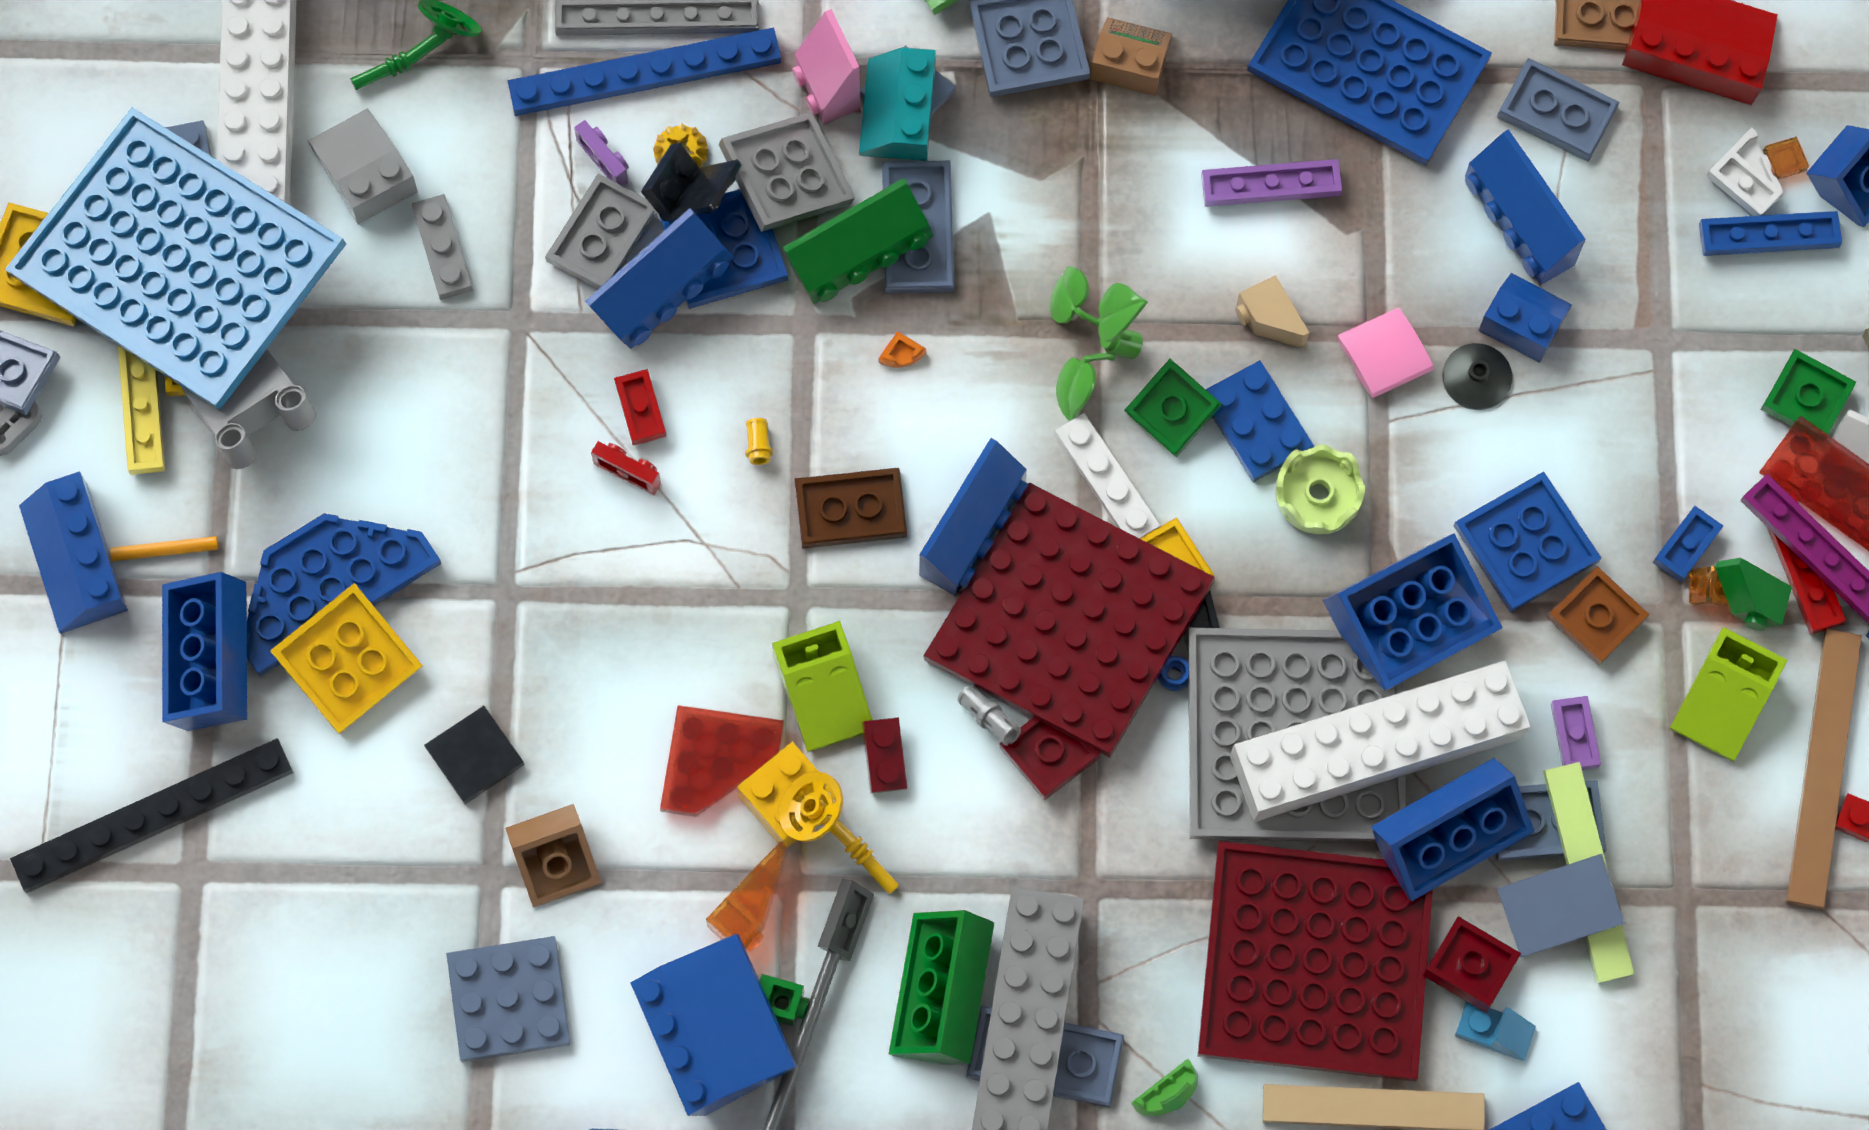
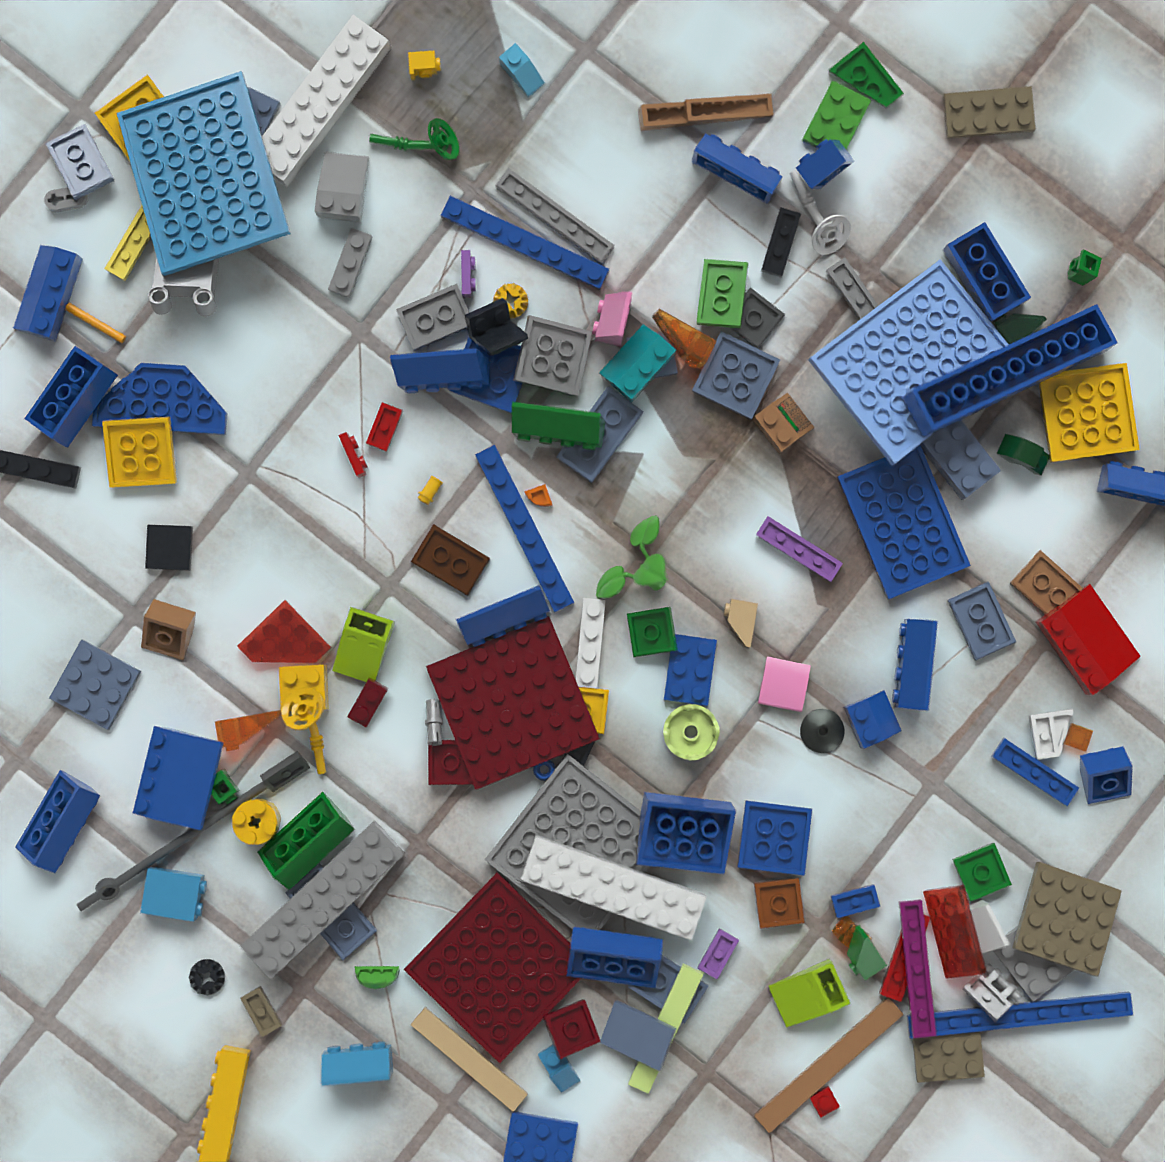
camera: 40 degrees right, 15 degrees up
(849, 990) = (251, 833): none -> yellow brick
(908, 399) = (524, 528): none -> blue plate
(951, 35) = (689, 342): none -> clear orange slope

